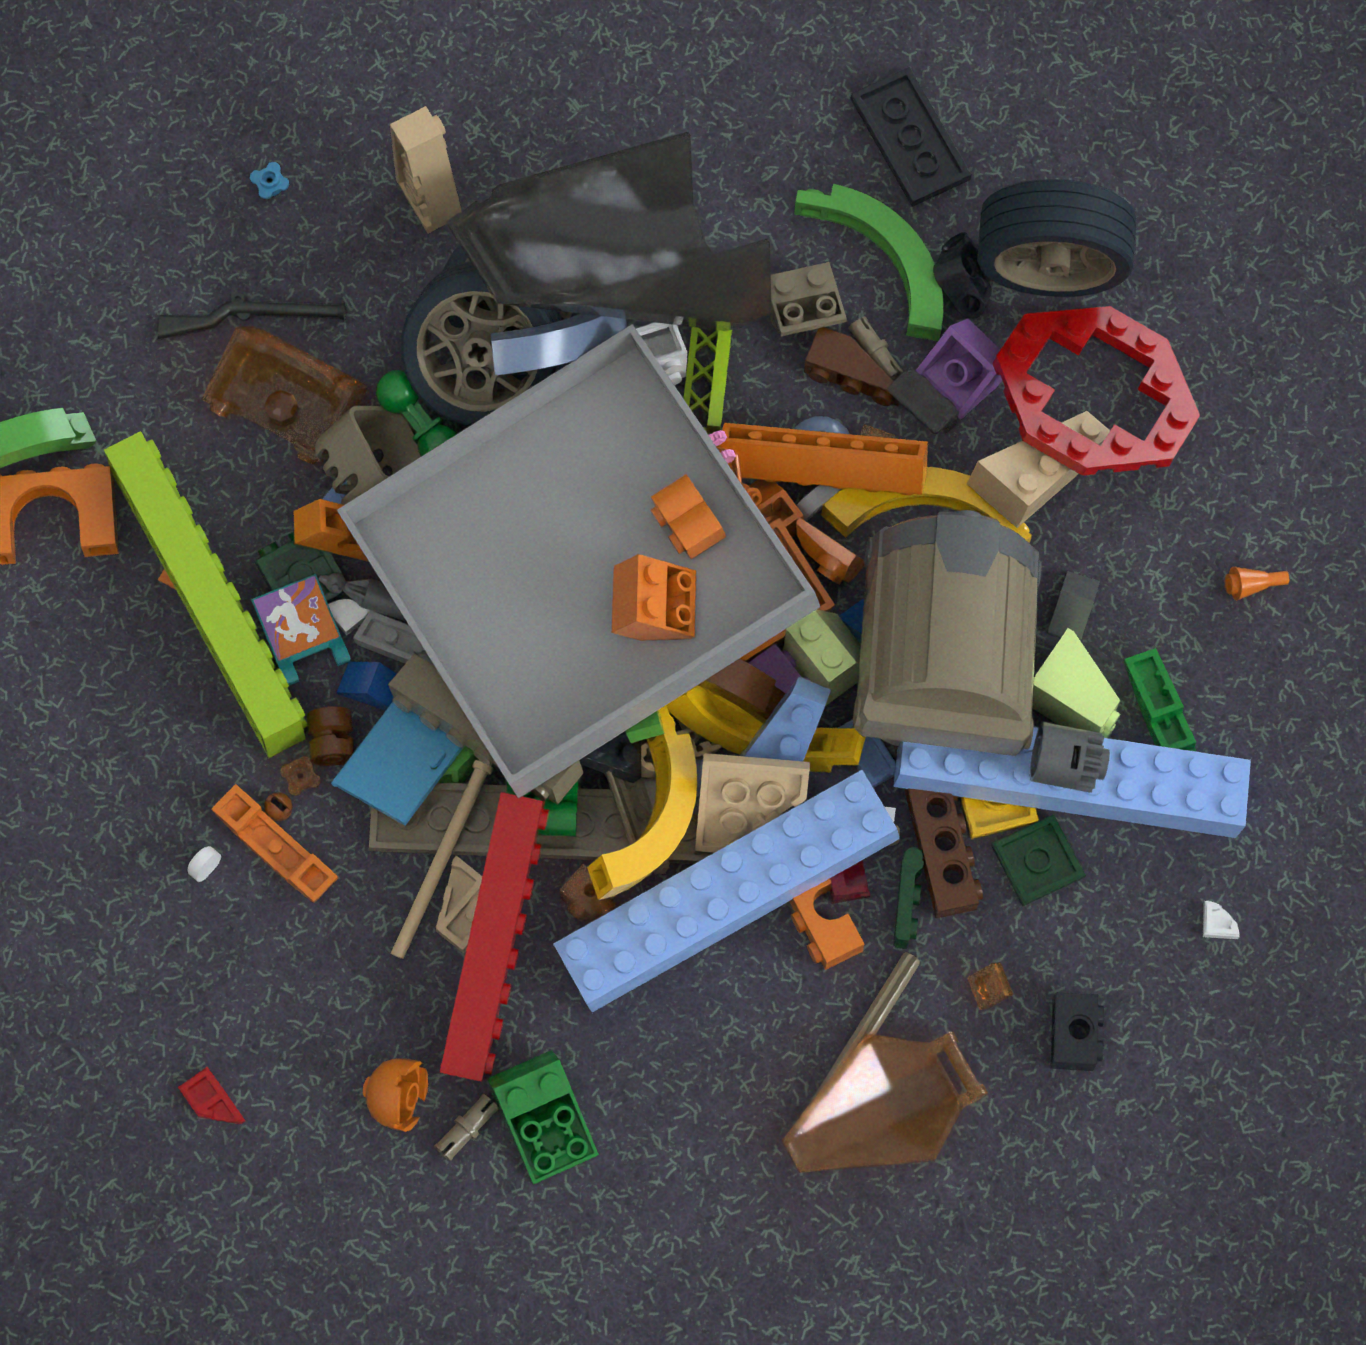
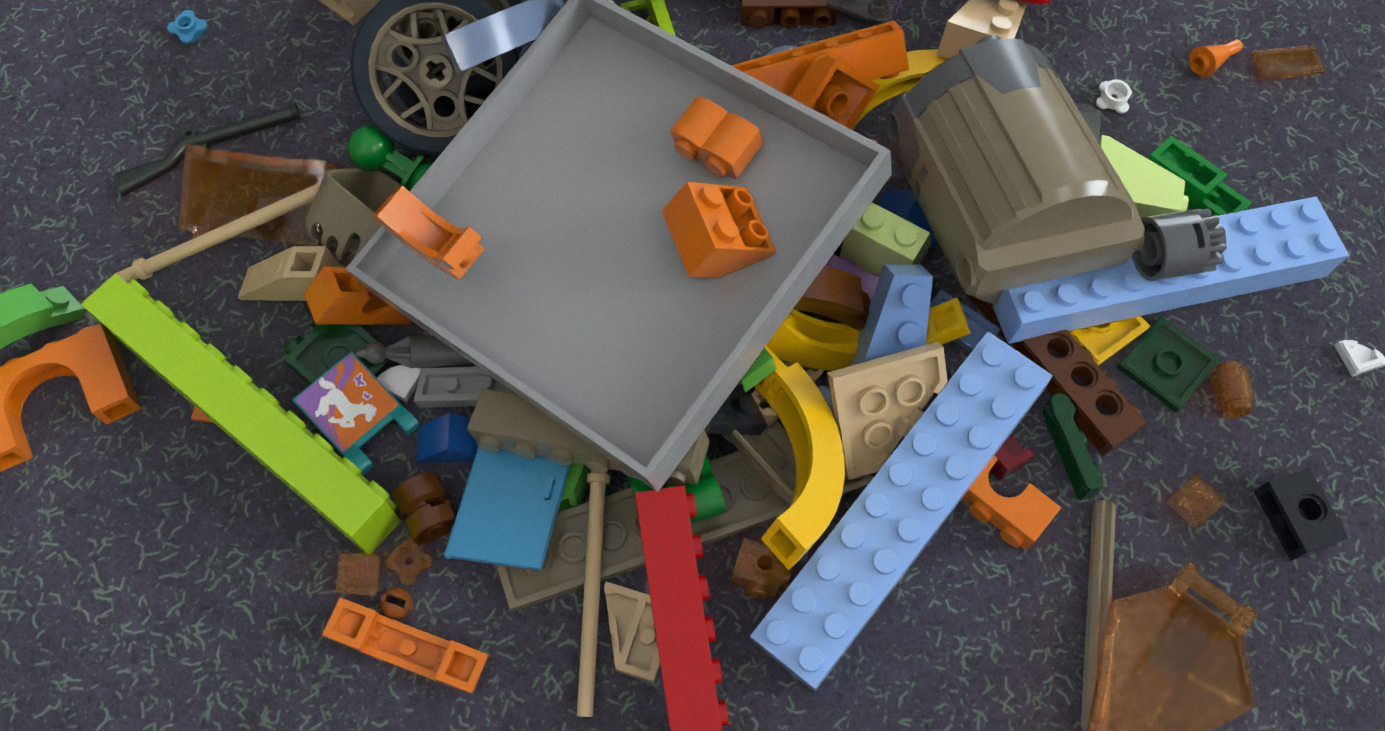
camera: 20 degrees left, 5 degrees down
(158, 421) = (144, 268): none -> tan bar
(203, 863) = (334, 698): white tile -> none
(256, 769) = (358, 573): none -> clear orange plate
(284, 481) = (286, 274): none -> tan slope
(414, 511) = (428, 234): none -> orange arch
(833, 497) = (835, 90): none -> orange slope
(1078, 904) = (1232, 389): none -> clear orange brick
(1131, 576) = (1114, 88): none -> white plate
(1325, 614) = (1287, 62): none -> clear orange tile

